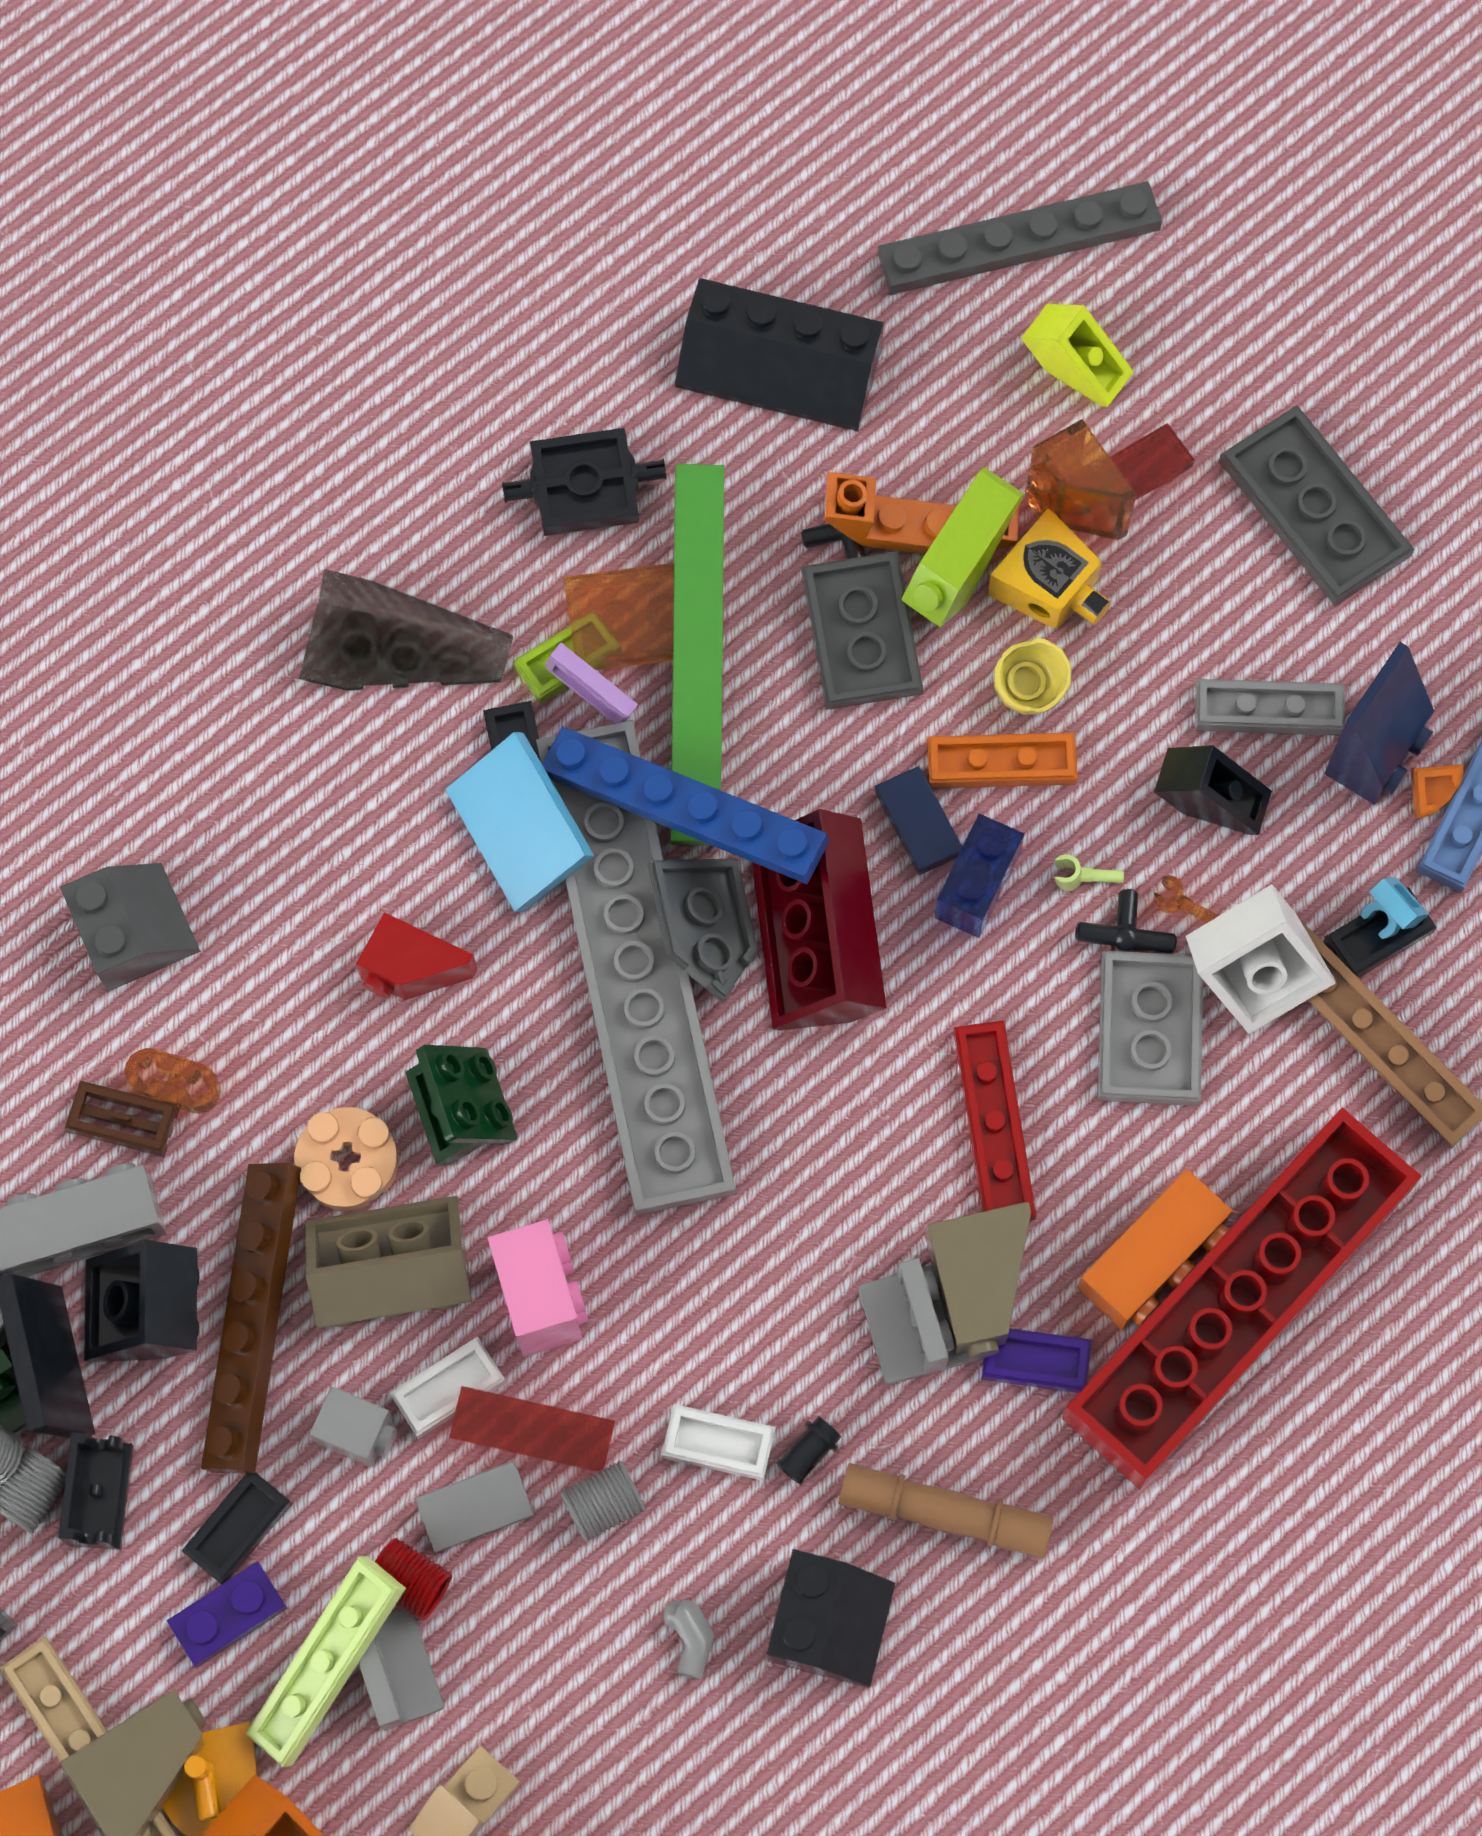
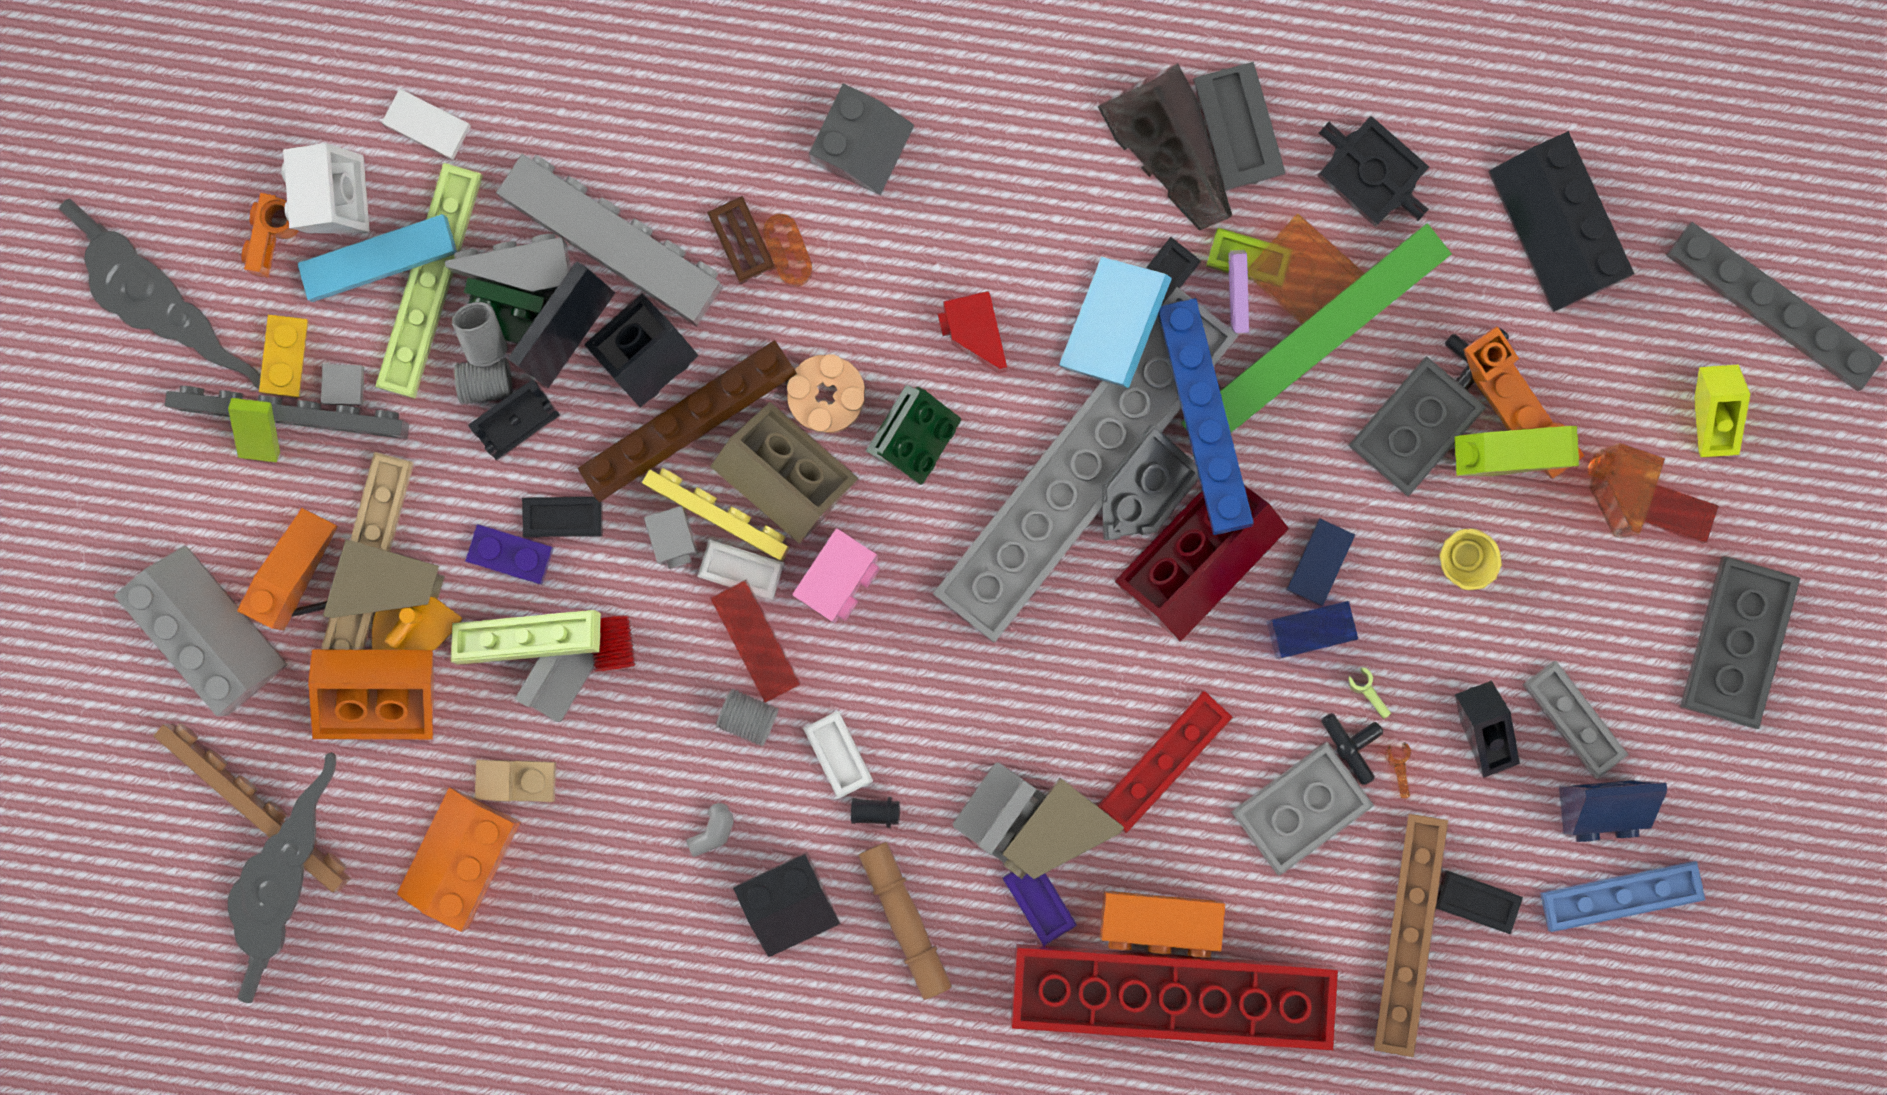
camera: 45 degrees right, 15 degrees up
(351, 1369) = (703, 505): none -> light yellow plate
(434, 566) = (1239, 126): none -> dark grey piece
(474, 1507) = (684, 645): light grey slope -> none
(1002, 760) = (1402, 581): orange tile -> none
(1050, 575) = (1550, 515): yellow torso -> none
(1259, 959) = (1395, 844): white slope -> none
(1398, 904) = (1502, 901): medium azure tile -> none
(1434, 787) = (1603, 863): orange tile -> none

